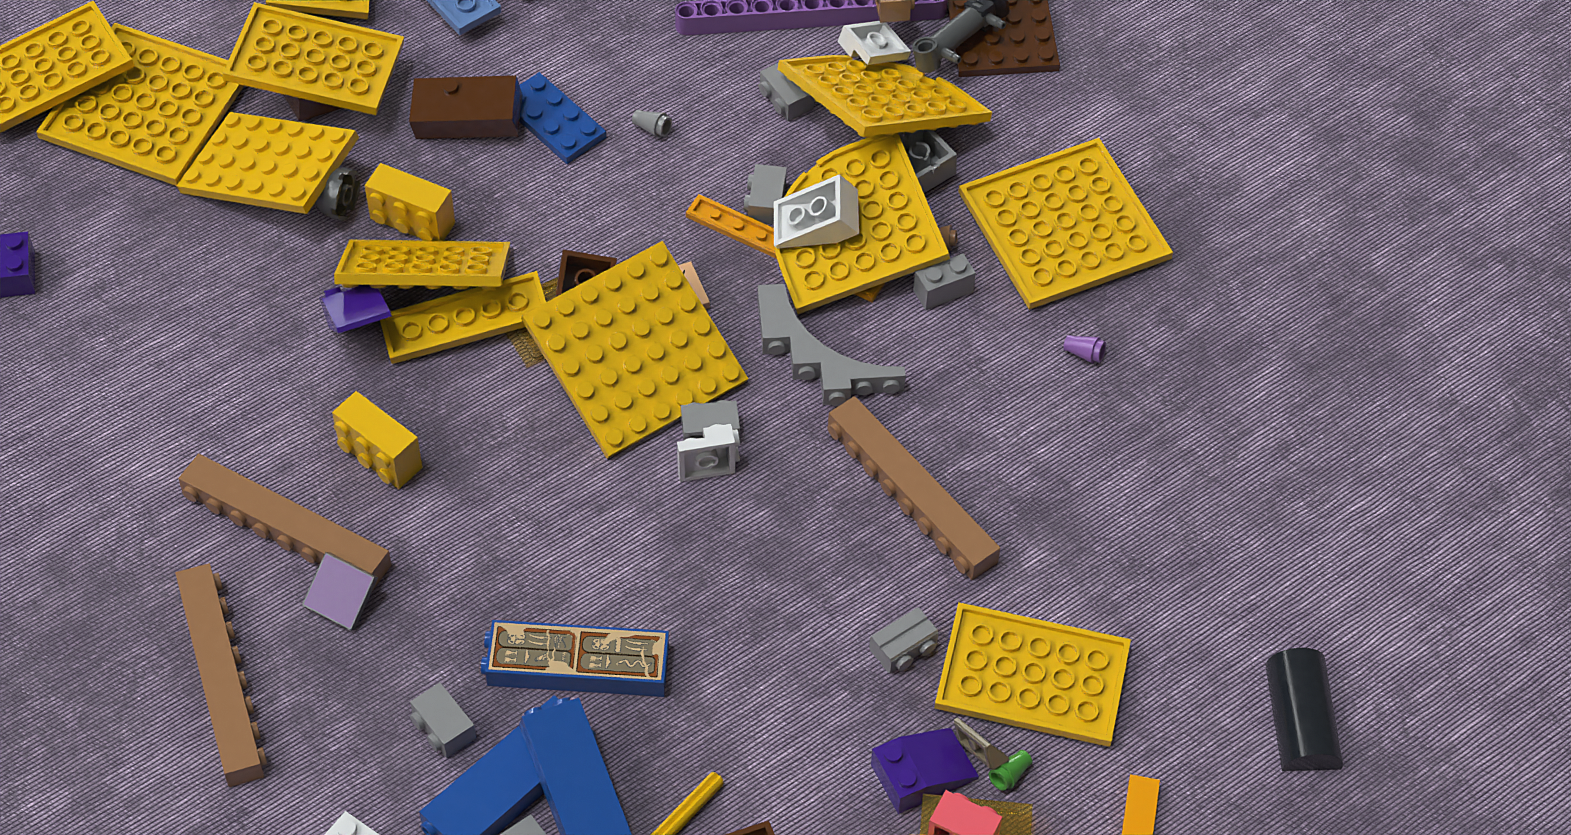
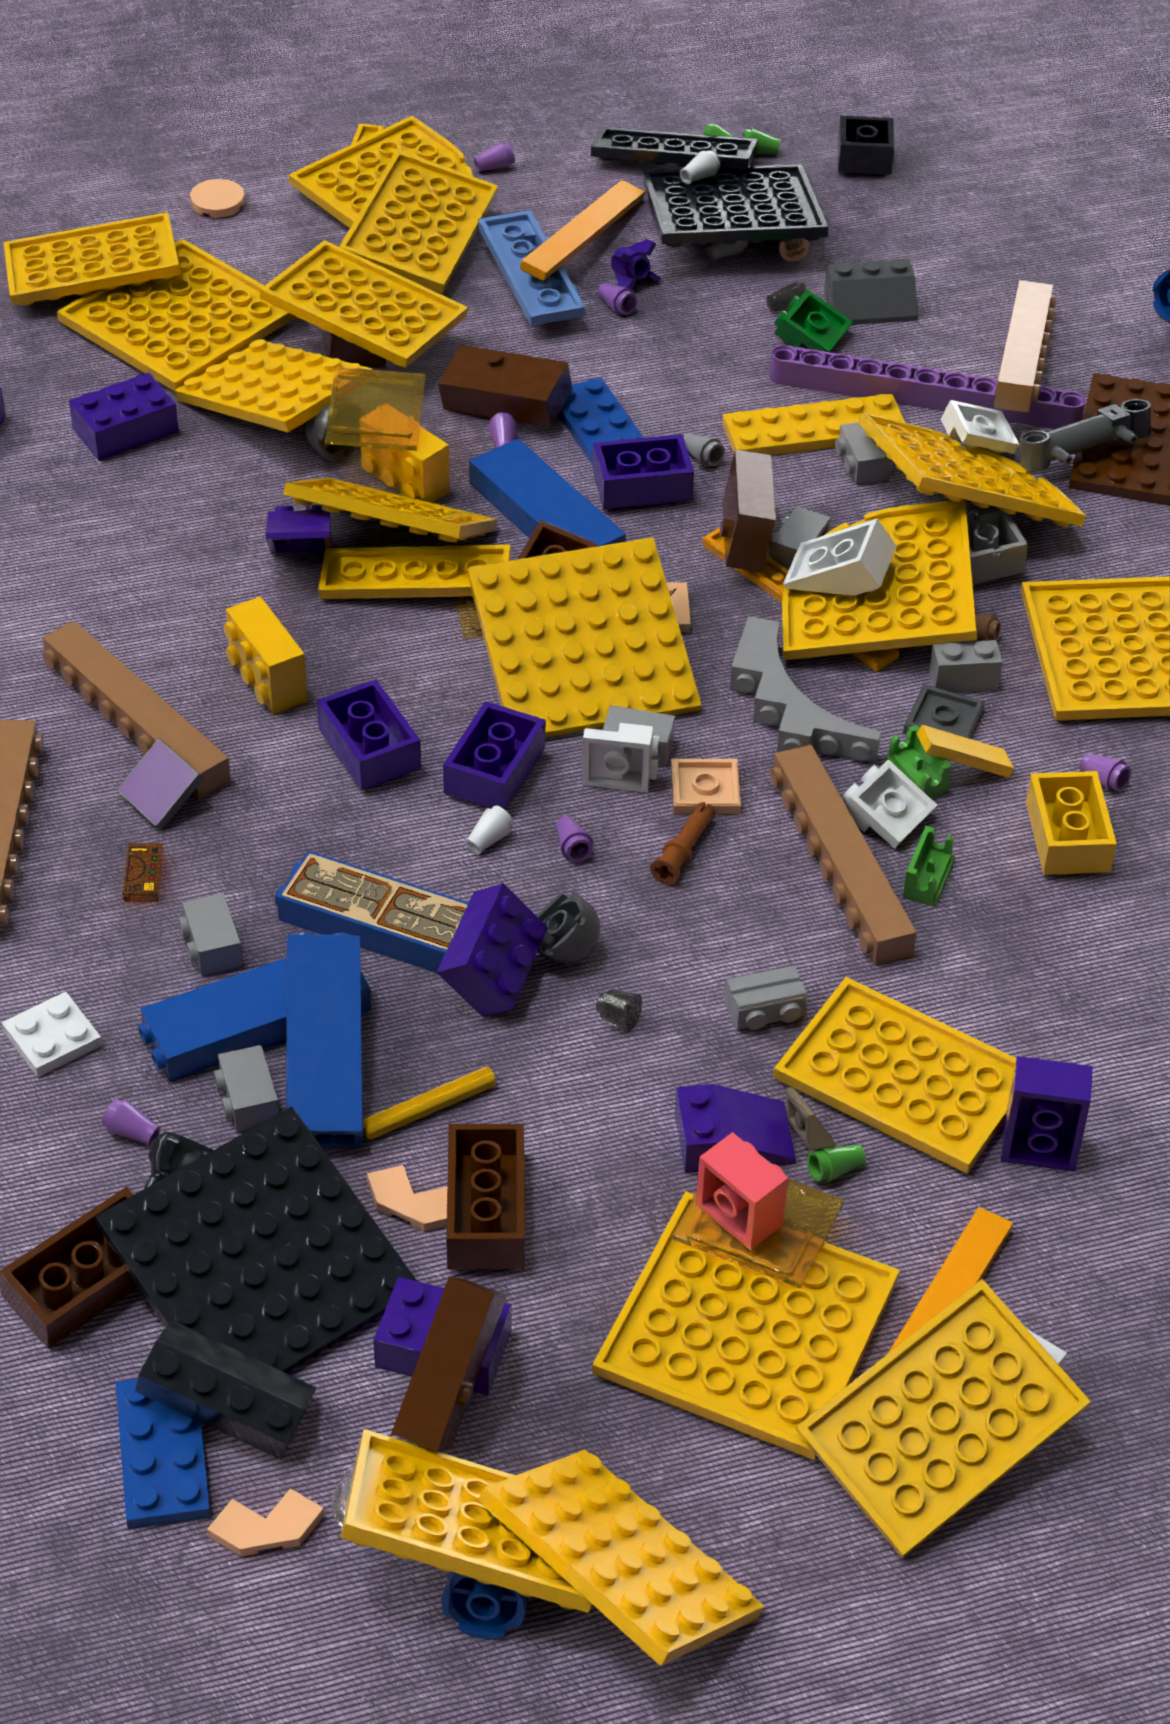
camera: 20 degrees right, 10 degrees down
(145, 227) = (123, 416): none -> dark purple brick
(358, 677) = (143, 872): none -> clear orange tile
(376, 172) = (375, 408): none -> clear yellow piece
(480, 153) = (502, 429): none -> medium lavender cone
(493, 491) = (369, 734): none -> dark purple brick
(542, 215) = (530, 490): none -> blue brick
(605, 481) = (494, 756): none -> dark purple brick
(614, 162) = (643, 471): none -> dark purple brick
(626, 548) = (491, 827): none -> white cone
(681, 669) = (492, 950): none -> dark purple brick
(698, 540) = (574, 841): none -> medium lavender cone
(721, 182) = (748, 511): none -> reddish brown brick
(727, 629) = (571, 929): none -> dark grey cylinder
(728, 73) = (802, 426): none -> yellow plate
(780, 454) = (705, 781): none -> light nougat tile
(784, 525) = (678, 851): none -> dark orange pin
(794, 685) = (620, 1008): none -> clear smoke hat
(931, 430) = (888, 803): none -> white plate
(941, 385) = (924, 770): none -> bright green hinge
(942, 332) = (945, 711): none -> dark grey tile
(975, 365) = (965, 751): none -> yellow tile
(984, 481) = (929, 868): none -> bright green hinge
(1078, 407) = (1070, 823): none -> yellow brick
(1159, 684) = (1046, 1113): none -> dark purple brick

